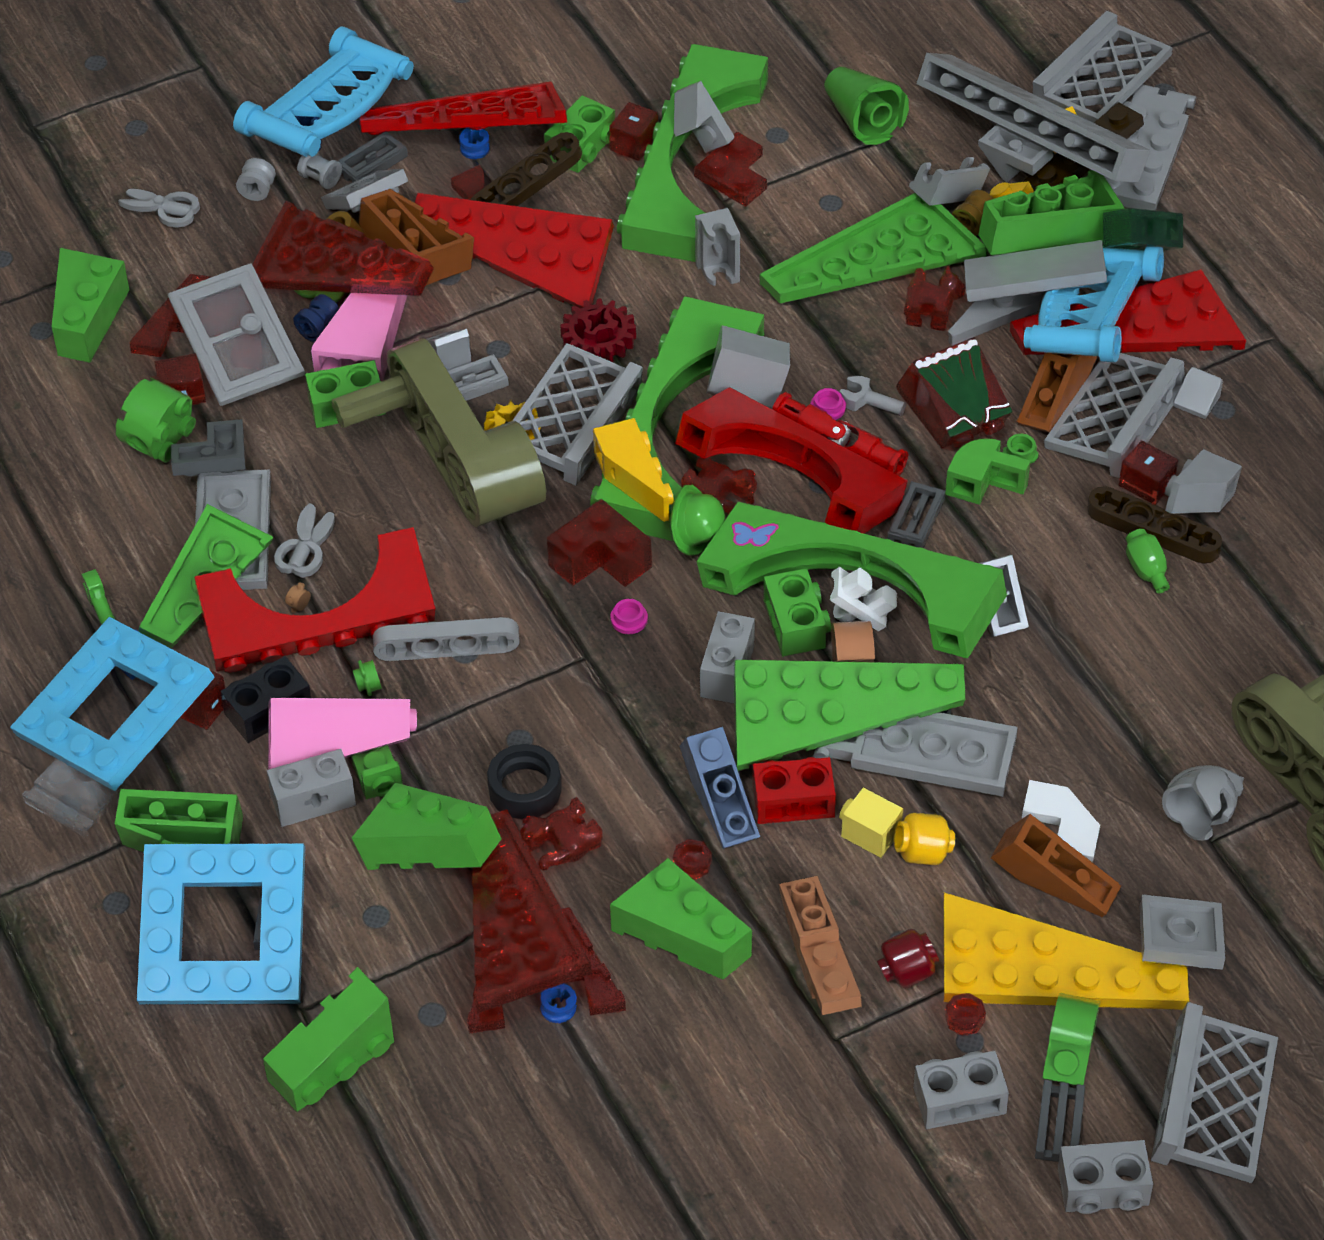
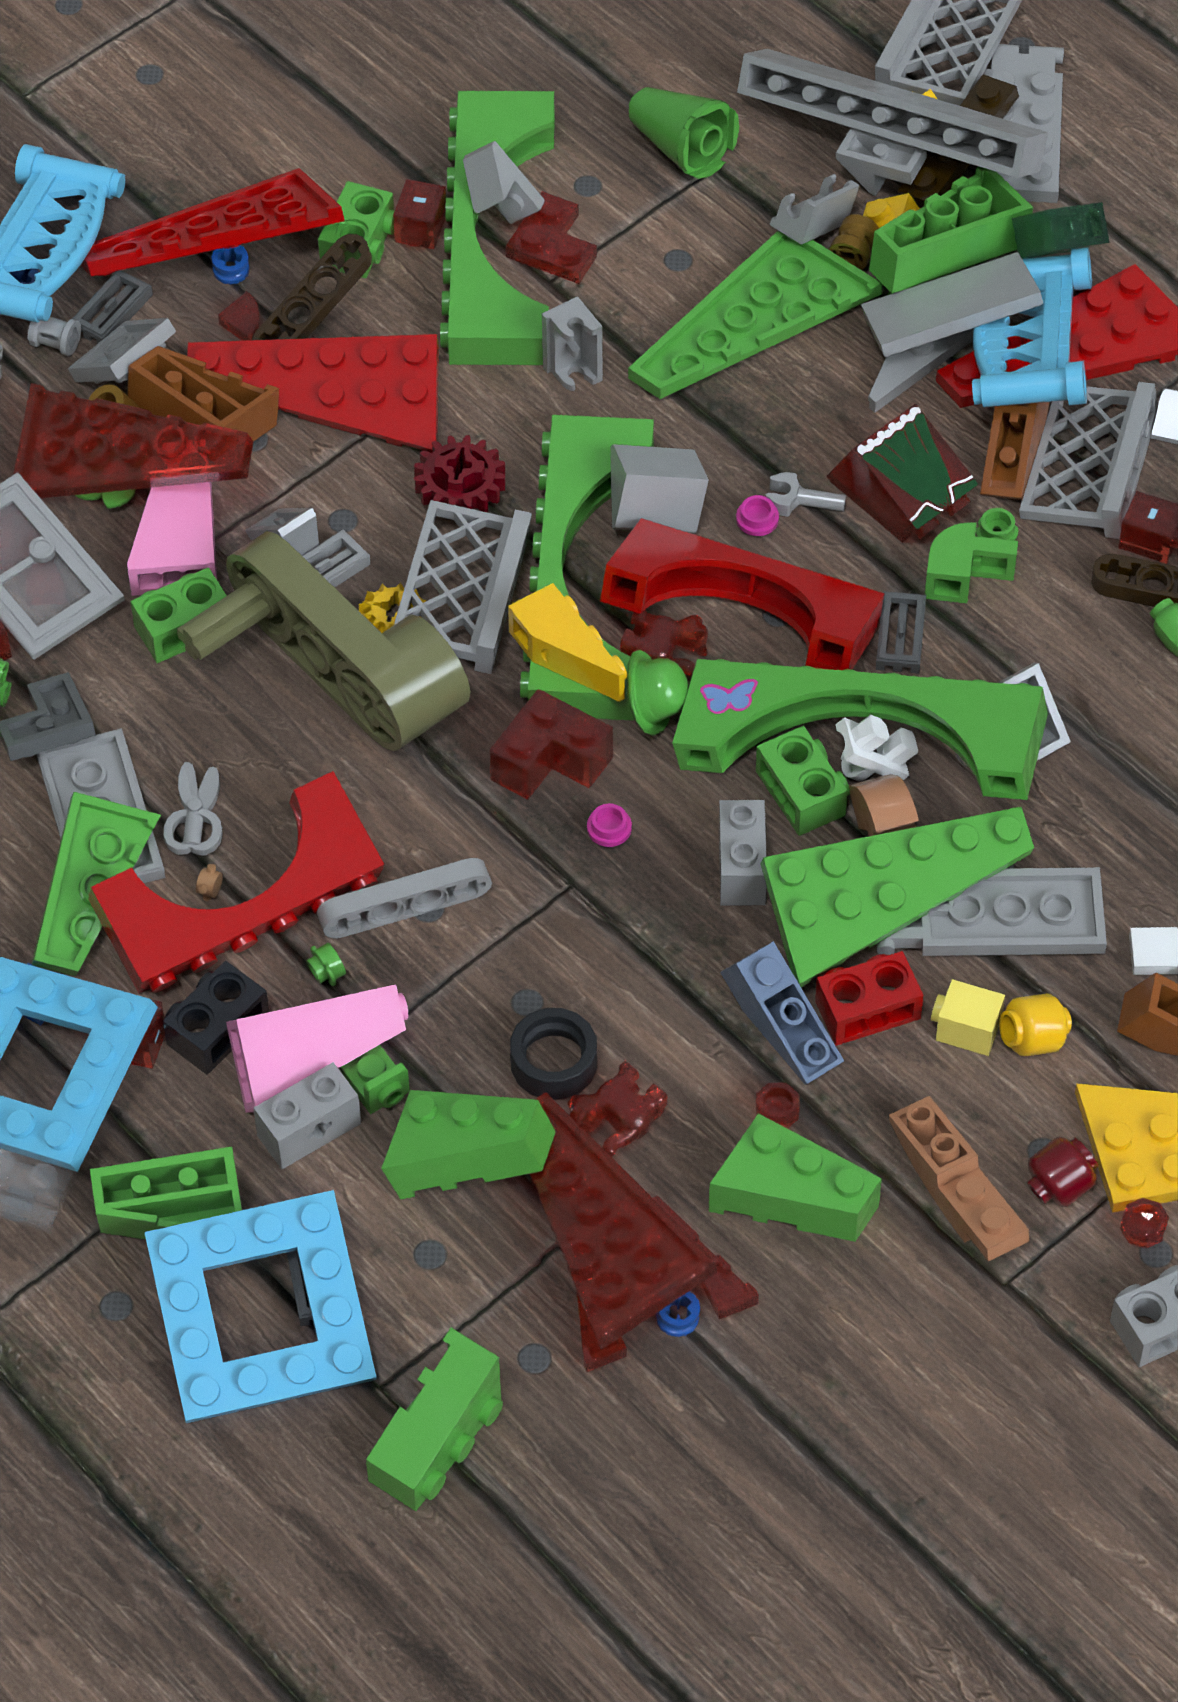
camera: 15 degrees left, 5 degrees up
(314, 320) = (114, 529): dark blue wheel -> none
(839, 431) = (781, 547): red piece -> none
(932, 300) = (838, 360): clear red animal -> none

